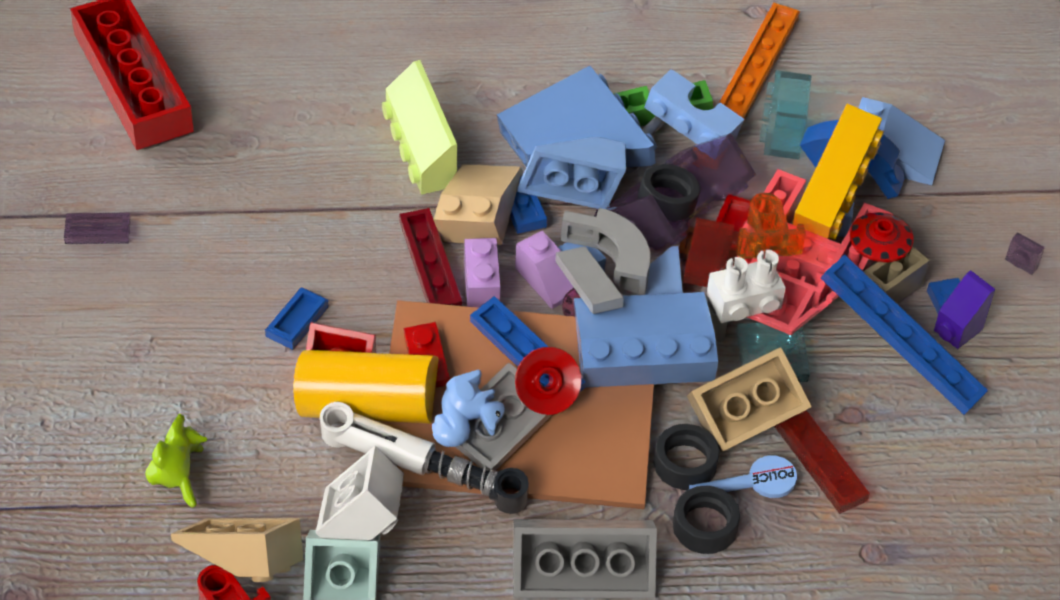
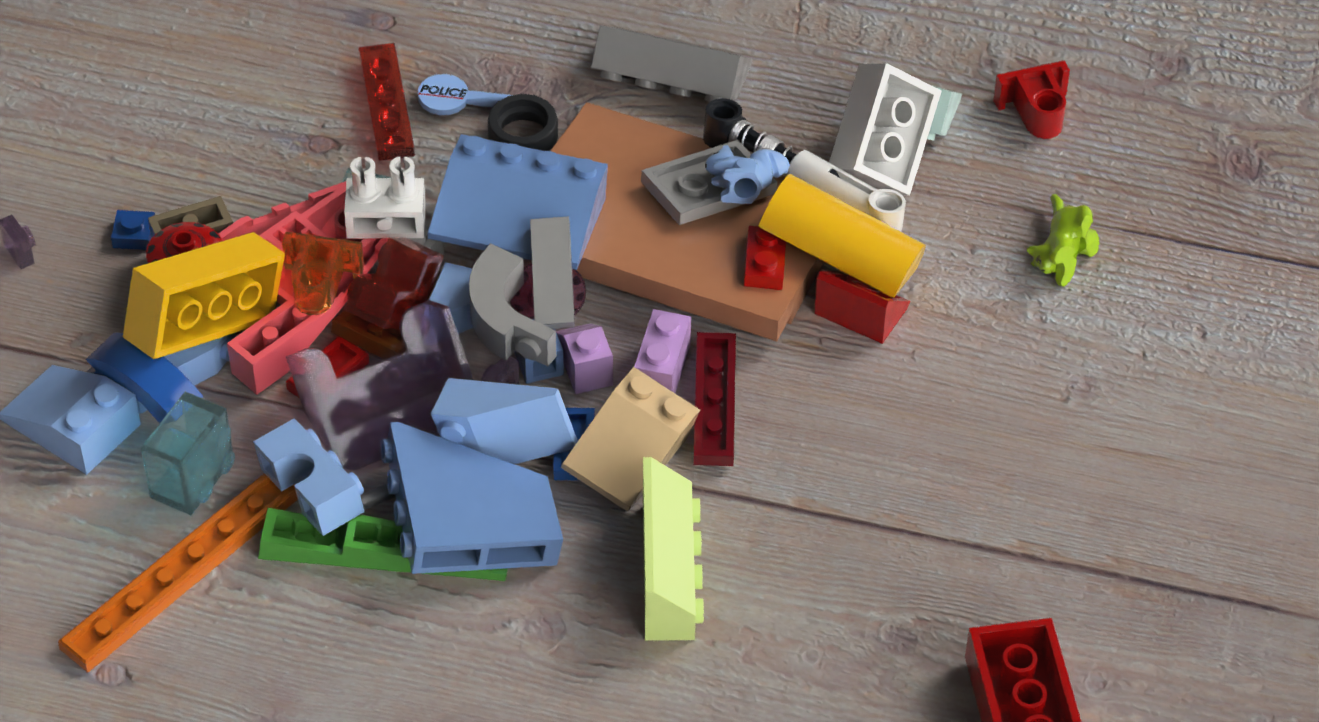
camera: 160 degrees left, 0 degrees up
(104, 228) = (1112, 552): clear purple tile -> none
(245, 545) = (1018, 129): tan slope -> none
(295, 318) = (892, 377): blue tile -> none
(508, 333) = (655, 227): blue plate -> none
(562, 386) = (650, 170): red dish -> none
(674, 178) = (395, 341): black tyre -> none
(711, 498) = (533, 50): black tyre -> none
(749, 399) = (424, 139): tan slope -> none
(904, 334) = (230, 161): blue plate -> none
(965, 310) = (141, 179): dark purple slope -> none

